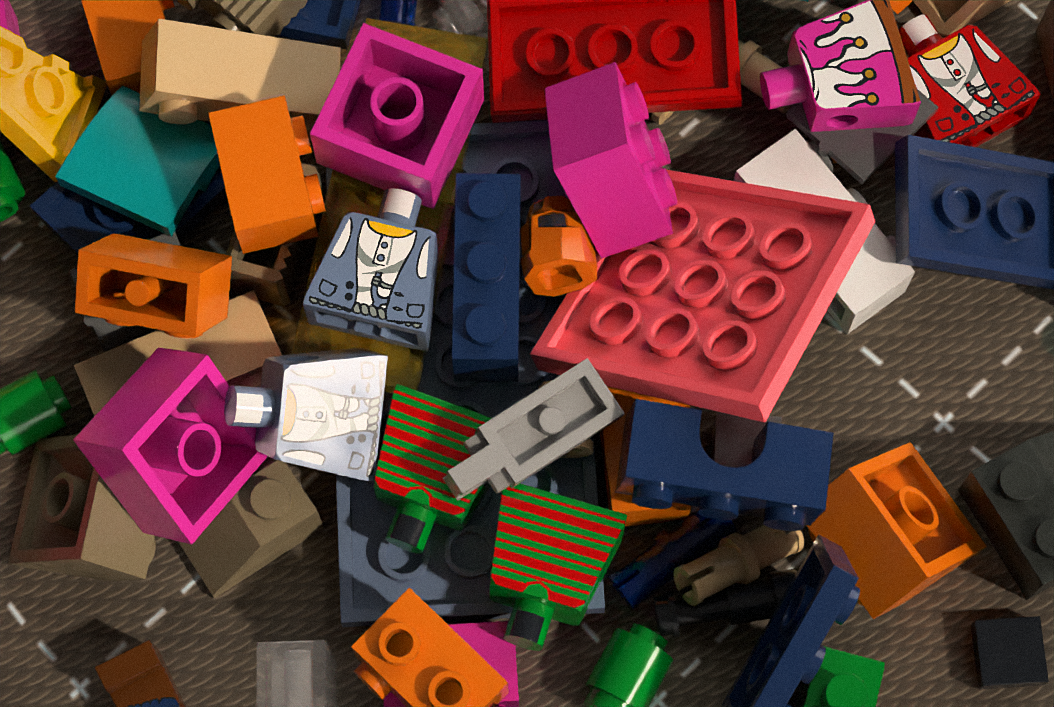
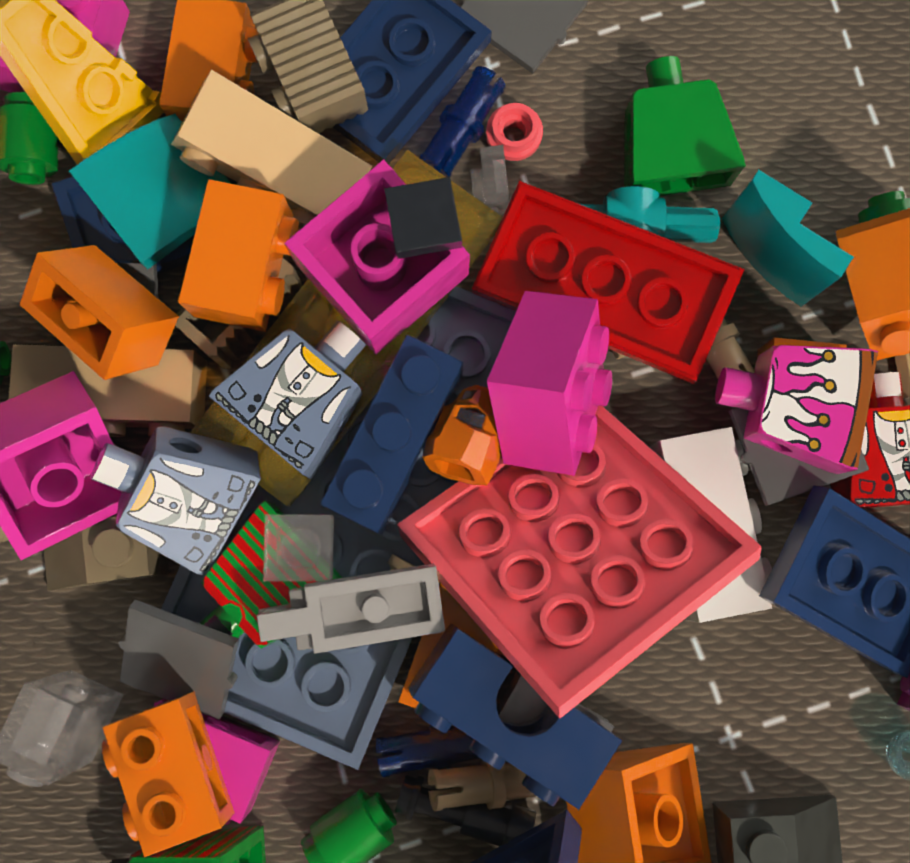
camera: 25 degrees right, 10 degrees up
(376, 564) = (177, 657): none -> dark grey piece
(427, 54) = (423, 217): none -> black tile
(452, 401) = (298, 547): none -> clear plate
(549, 560) = (321, 720): torso -> none

